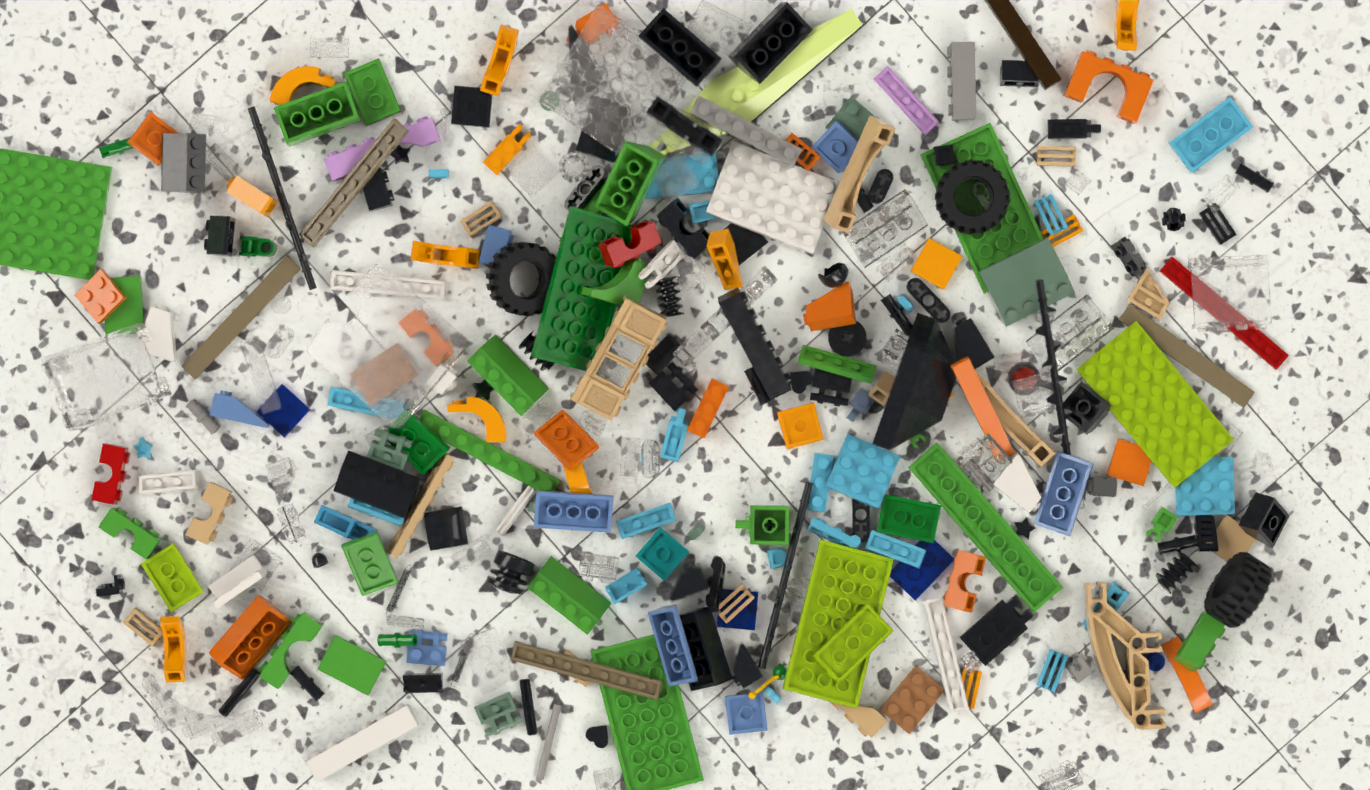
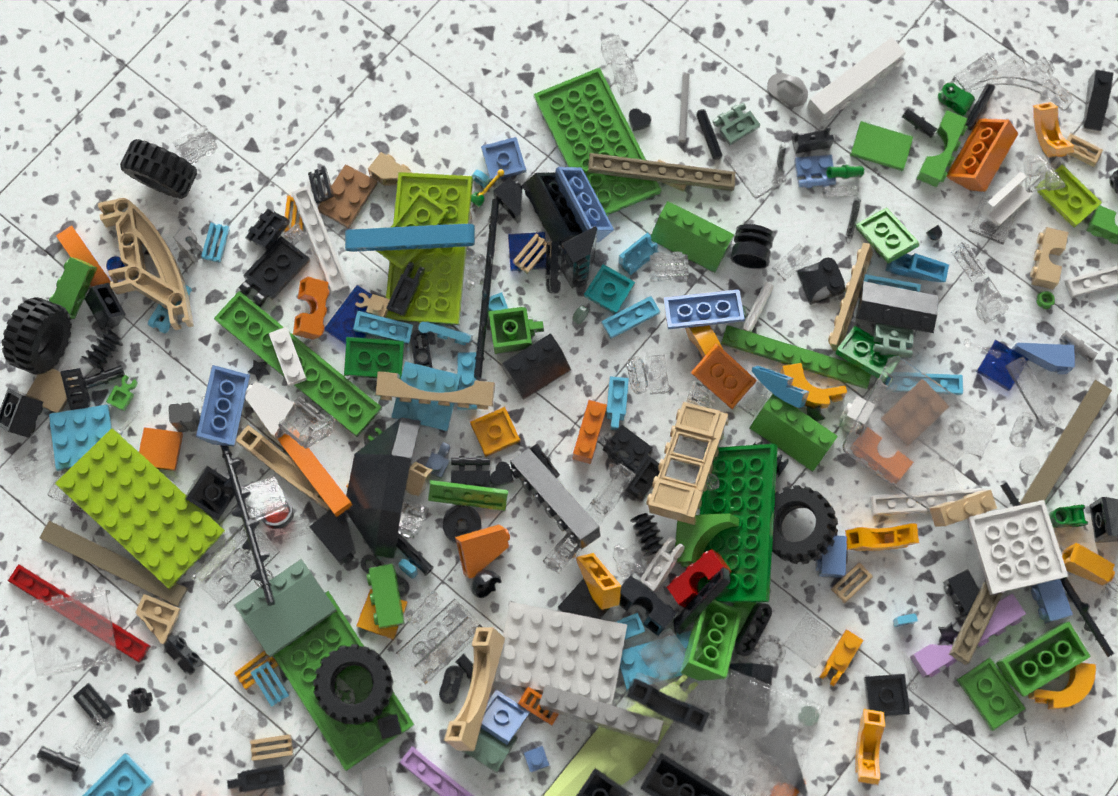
camera: 165 degrees right, 15 degrees down
(115, 678) = (1097, 99): none -> black slope
(197, 604) = (1040, 174): none -> clear slope
(218, 470) = (1045, 295): none -> bright green plate
(259, 701) = (956, 99): none -> green piece
(287, 420) = (967, 342): none -> clear hinge
(293, 169) = (1051, 601): none -> medium blue brick
(319, 221) = (1017, 547): none -> white plate
(372, 265) = (962, 509): none -> tan arch
(435, 745) = (788, 89): none -> light grey piece
(512, 420) = (781, 386): none -> dark azure slope
(596, 333) = (712, 482): none -> clear hinge
(632, 220) = (701, 600): none -> black tile
(689, 380) = (613, 449): none -> black piece
(748, 483) = (536, 366): none -> black slope
(811, 104) = (536, 759): none -> medium blue plate
(856, 631) = (409, 237): none -> dark azure beam
(868, 580) = (405, 290): none -> black hinge
(895, 482) = (479, 394): none -> tan arch
(898, 573) = (376, 305): none -> tan plate
(930, 277) = (385, 596): none -> bright green brick
(932, 729) = (317, 175): none -> black tile
(994, 533) = (287, 356): none -> white plate
(995, 670) = (267, 229): none -> black plate
(1100, 749) = (158, 168): none -> black tyre
(1169, 616) = (104, 306): none -> black brick

